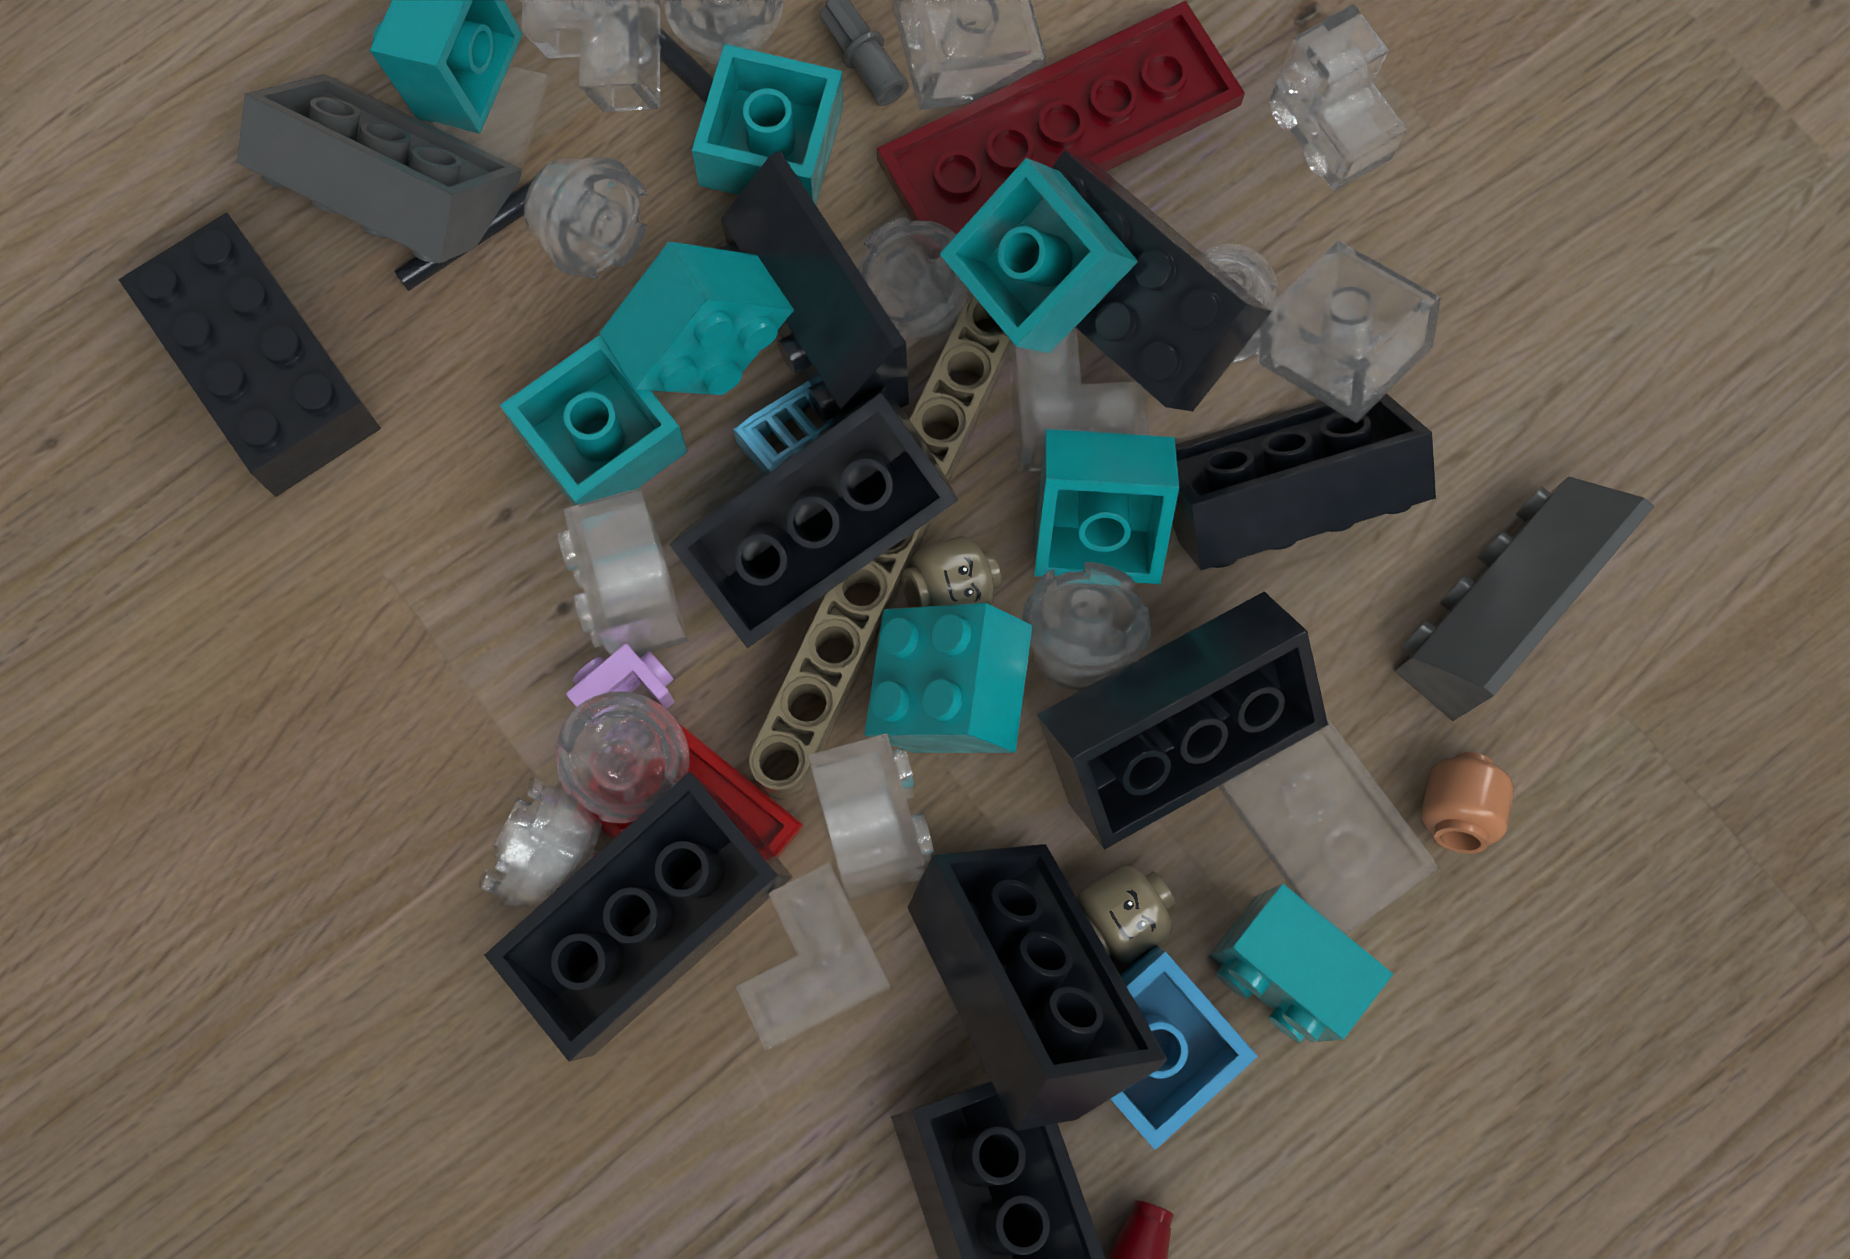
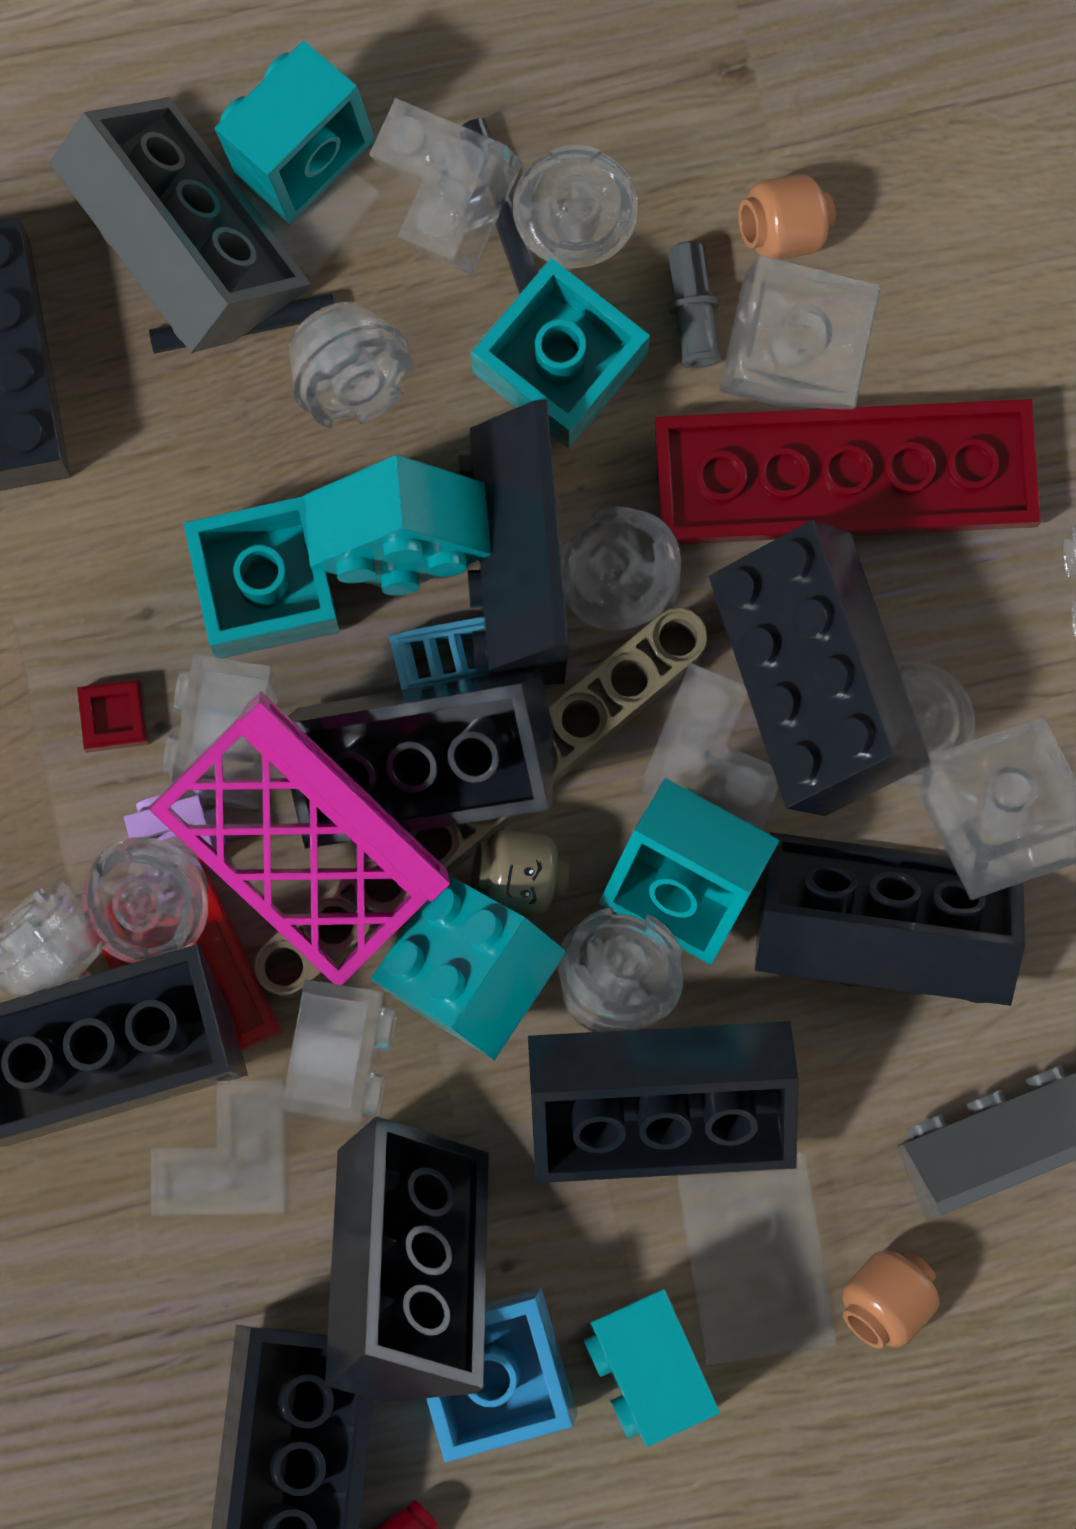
camera: 30 degrees right, 5 degrees up
(514, 615) = (113, 715): none -> dark red tile
(762, 577) = (340, 800): none -> dark pink fence
(1037, 257) = (730, 617): teal brick -> none
(1128, 912) = (527, 1249): dark tan head -> none

